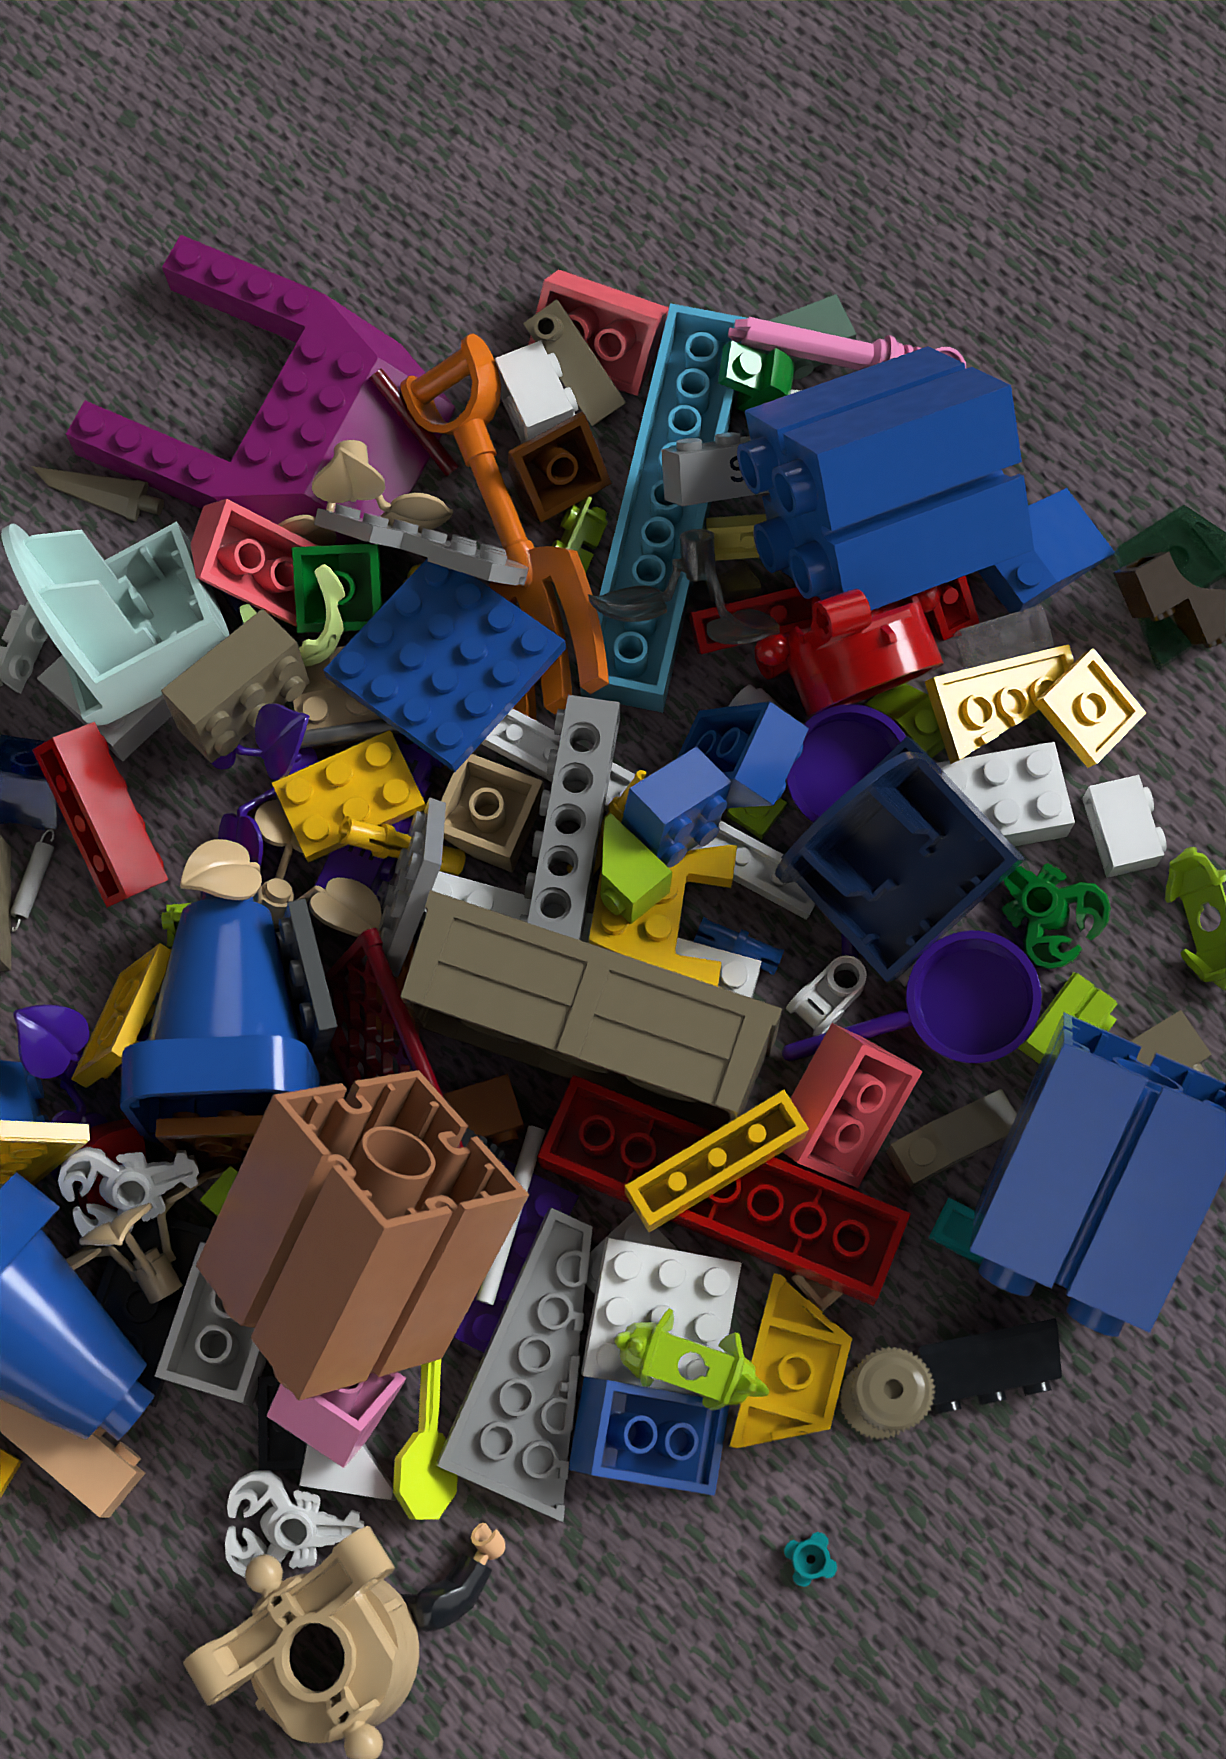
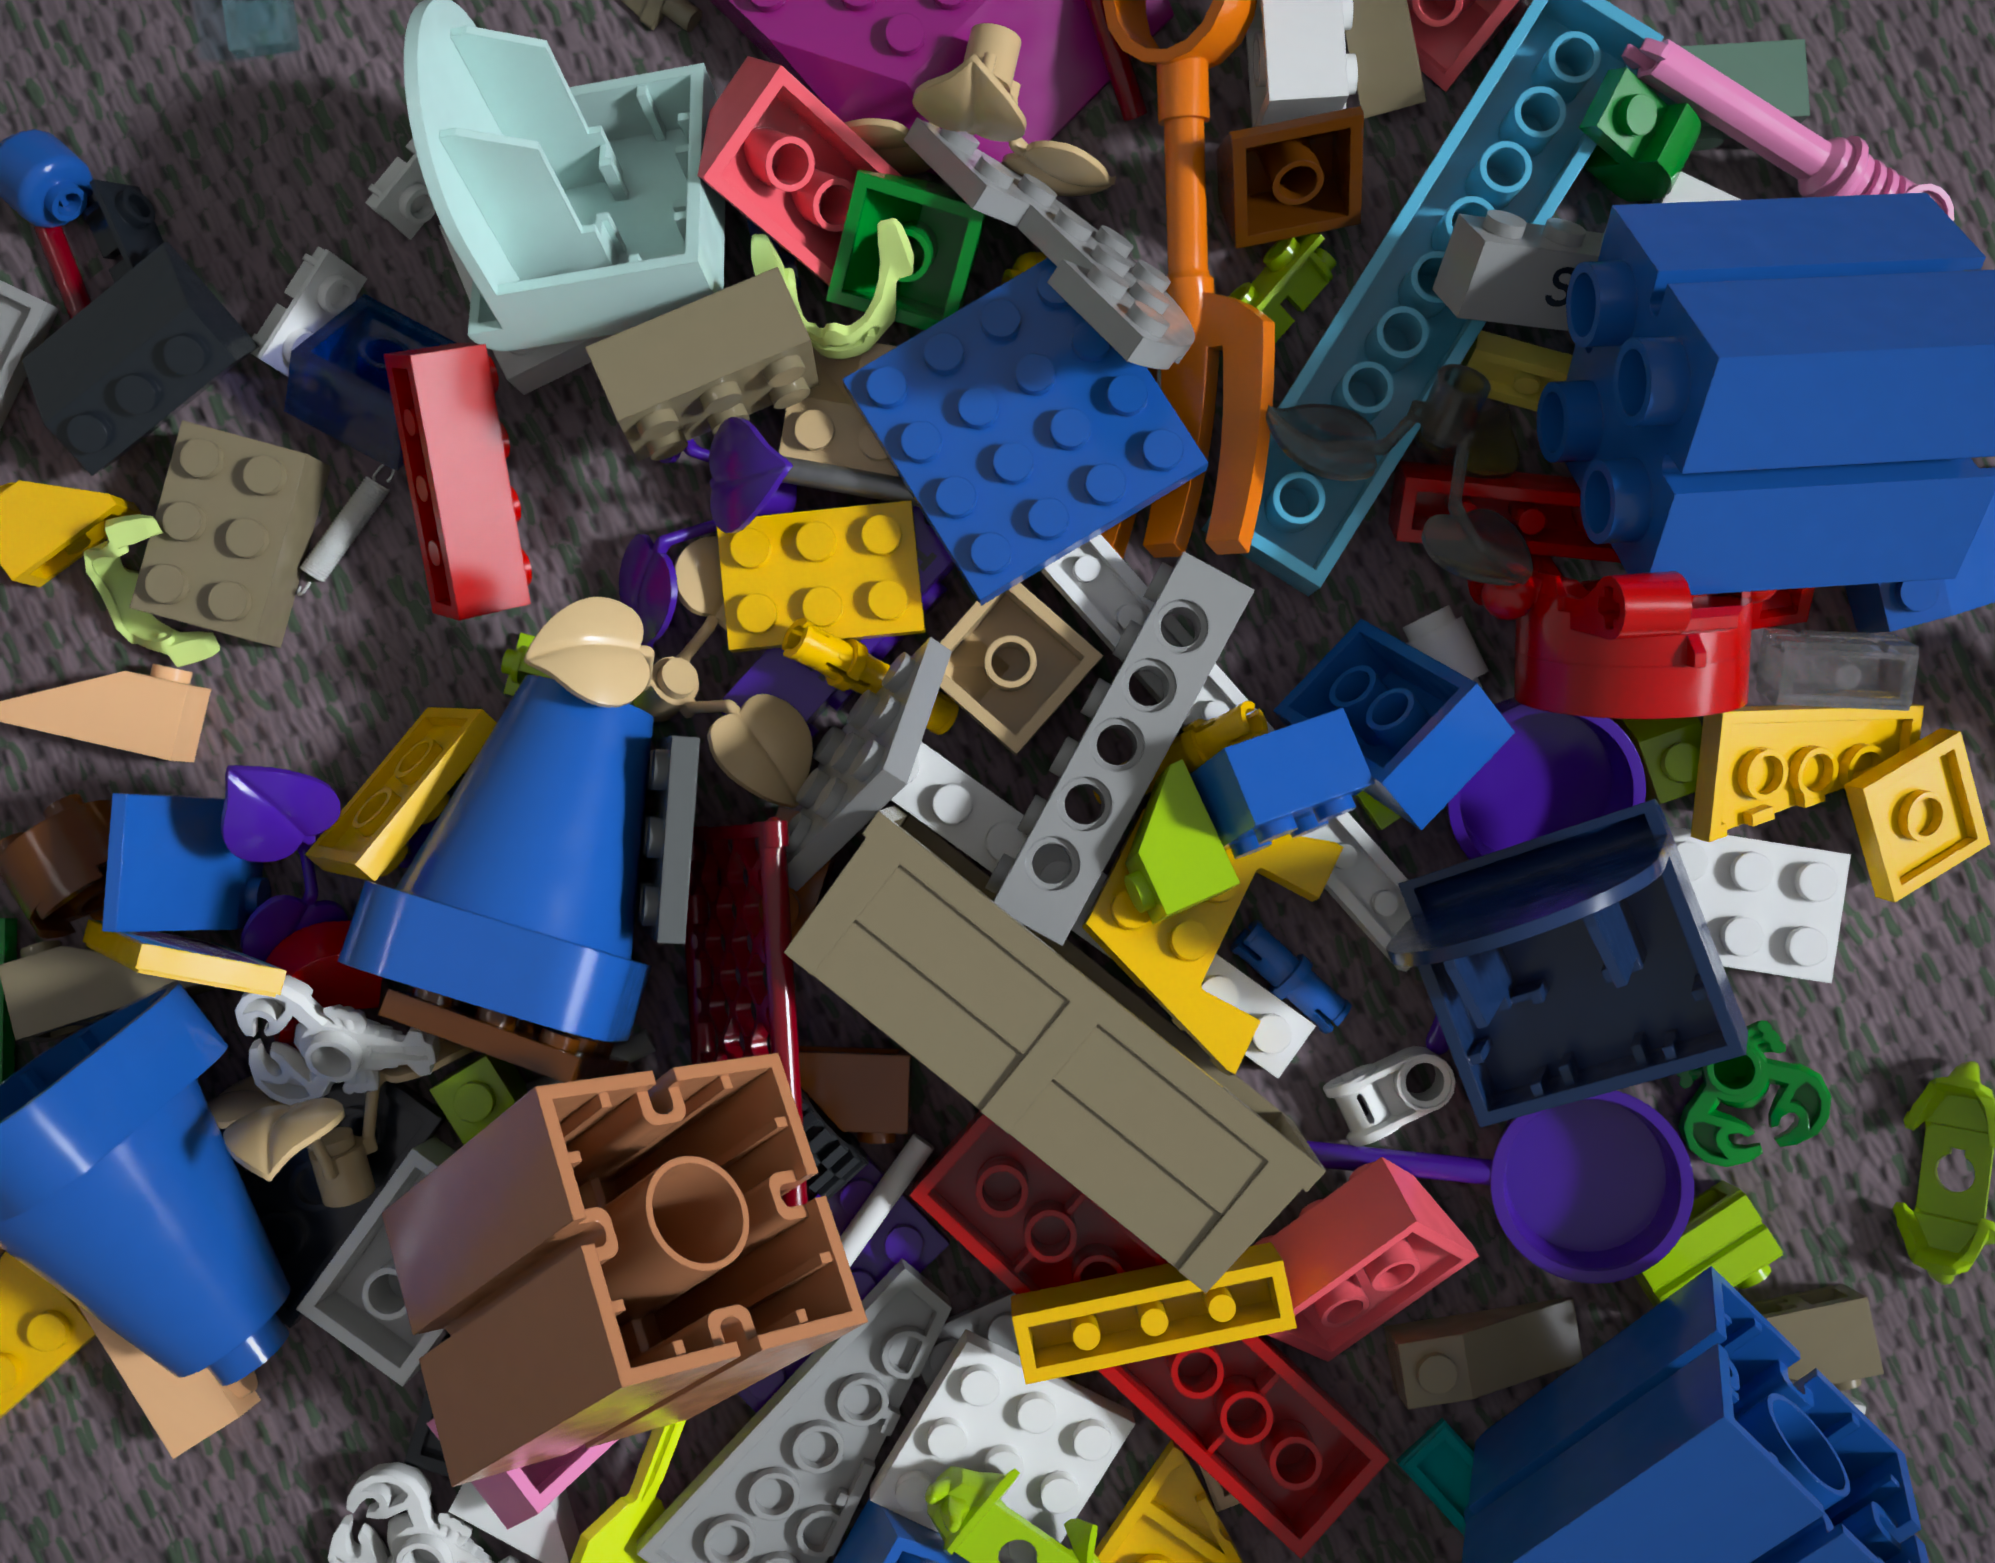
camera: 15 degrees right, 15 degrees up
(1124, 825) = (1892, 1000): white brick -> none

